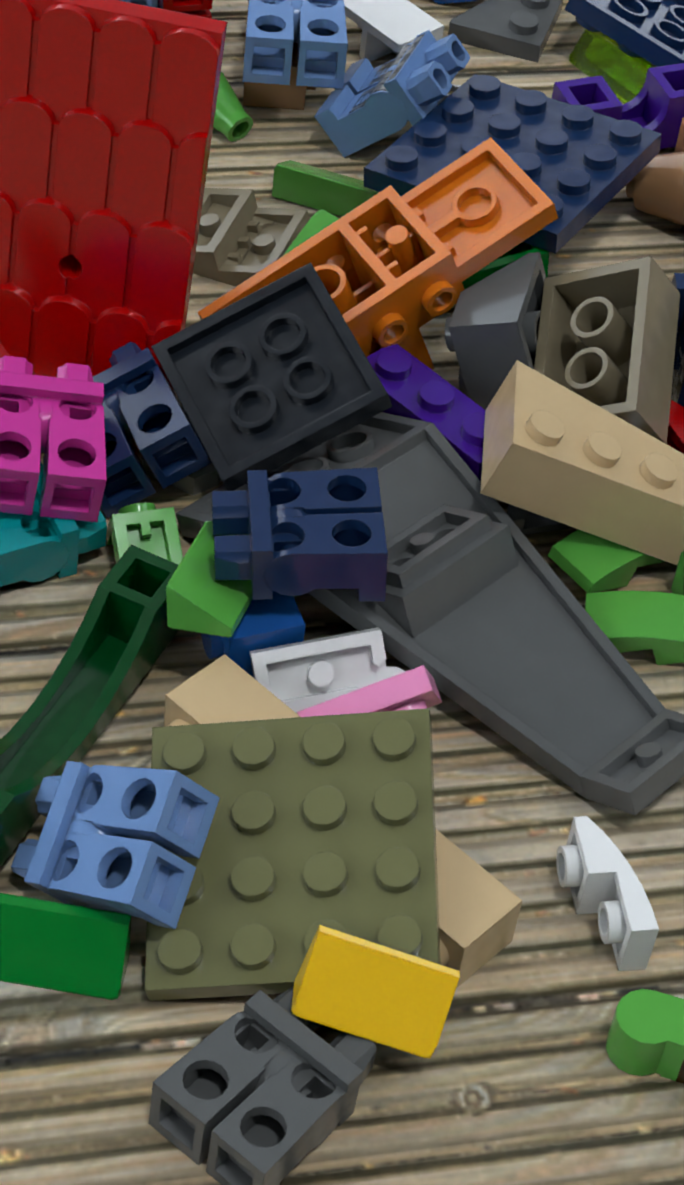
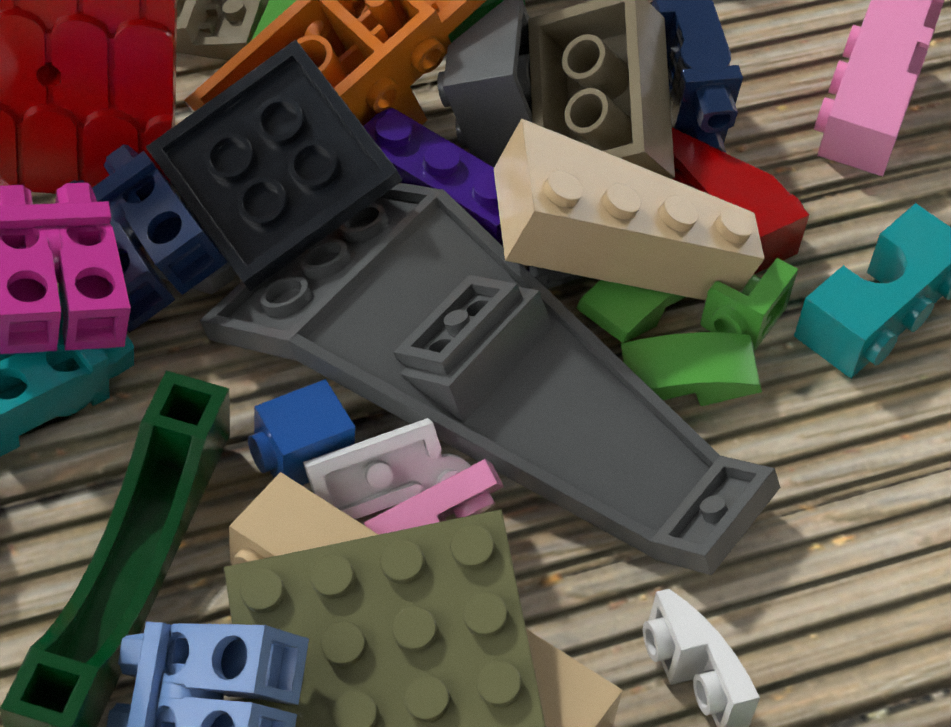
camera: 10 degrees left, 5 degrees up
(147, 529) = (175, 348): bright green bracket -> none
(199, 601) = (258, 399): bright green slope -> none
(303, 533) = (340, 335): dark blue hips -> none

